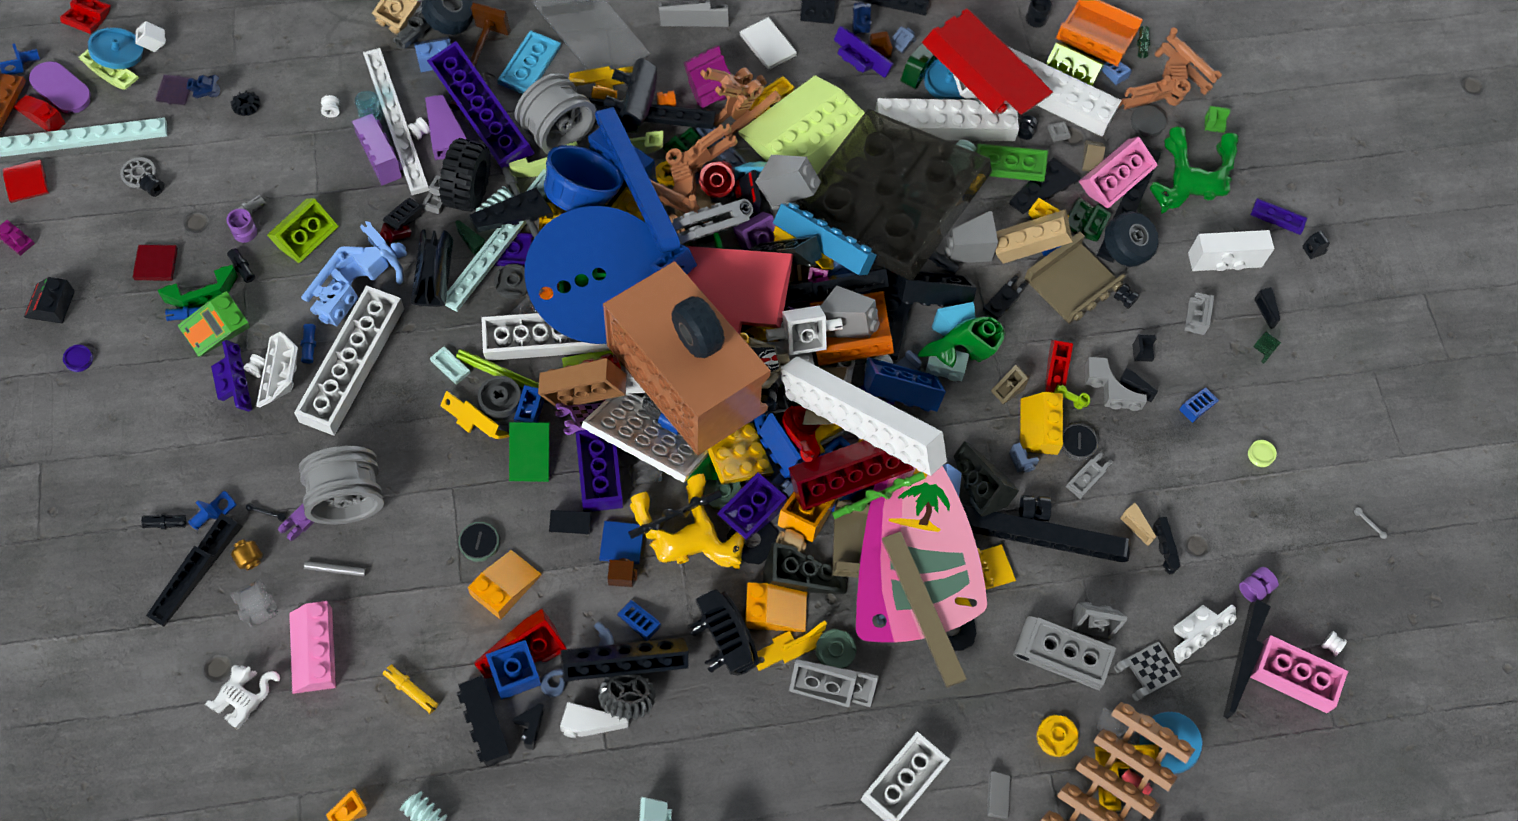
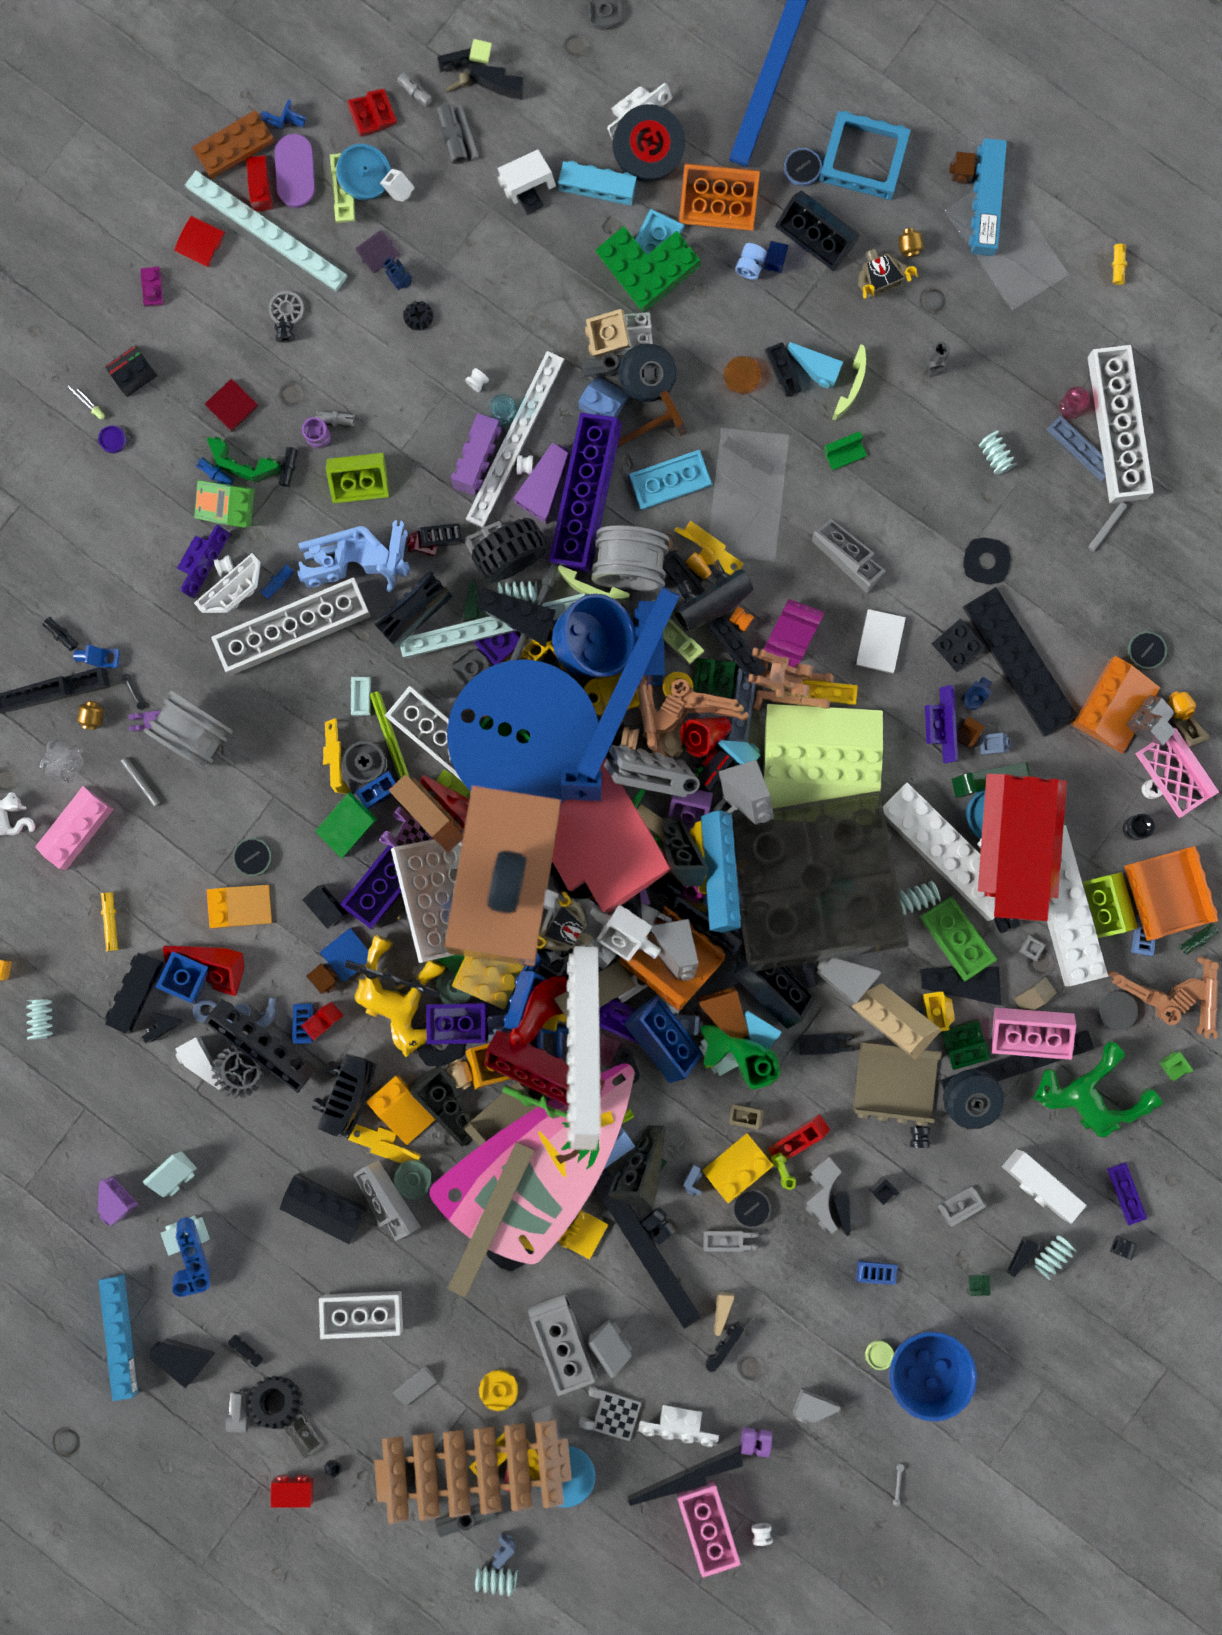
camera: 55 degrees right, 20 degrees up
(45, 350) = (95, 410): none -> piece
(652, 602) = (322, 1020): none -> red slope
(794, 735) = (322, 1208): none -> black slope
(920, 330) = (725, 1011): none -> dark orange slope
(1264, 526) = (813, 1407): none -> light grey slope
(1286, 288) = (1054, 1256): none -> light aqua piece
(1308, 421) = (932, 1376): none -> blue piece

